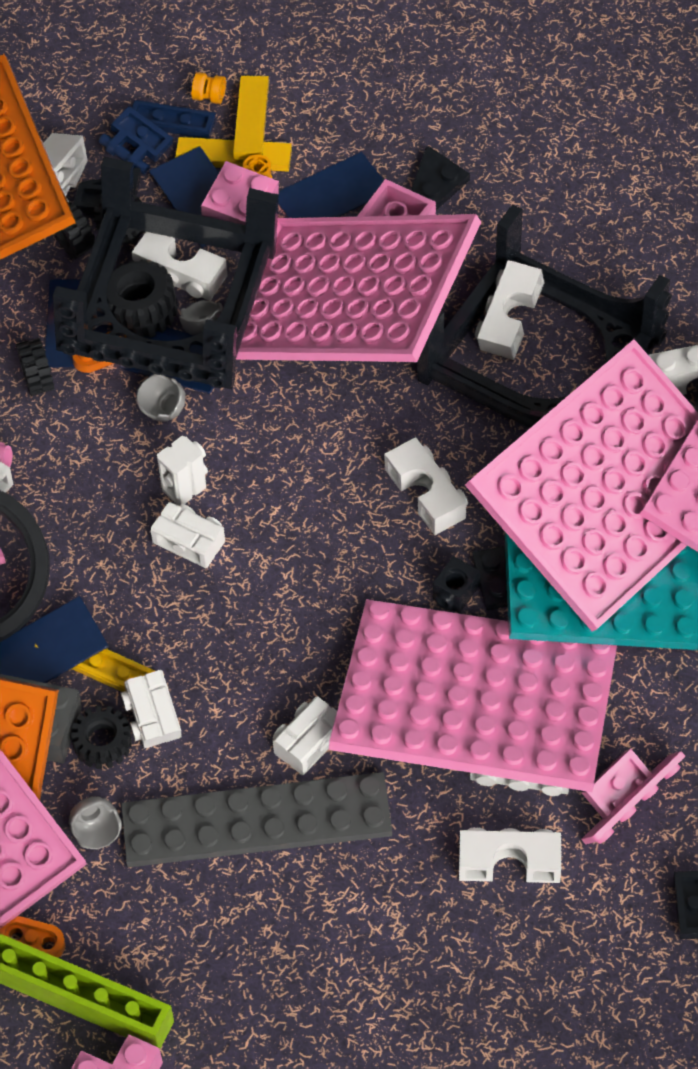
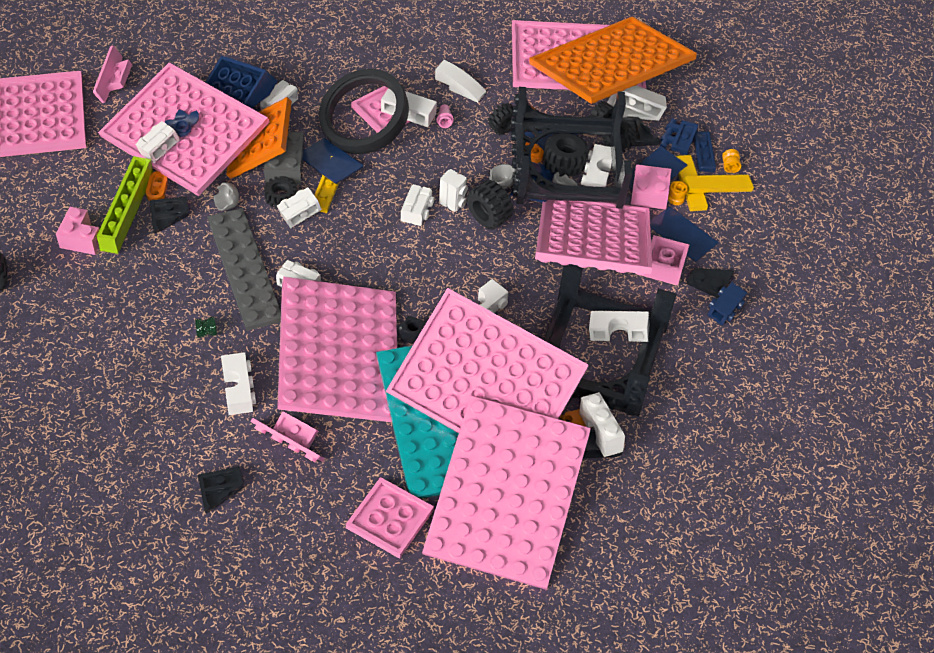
camera: 70 degrees right, 5 degrees down
(100, 927) = (168, 212): none -> black wing
(232, 422) = (490, 204): none -> black tyre
(381, 890) = (205, 327): none -> clear green wheel
(494, 168) = (724, 307): none -> dark blue brick

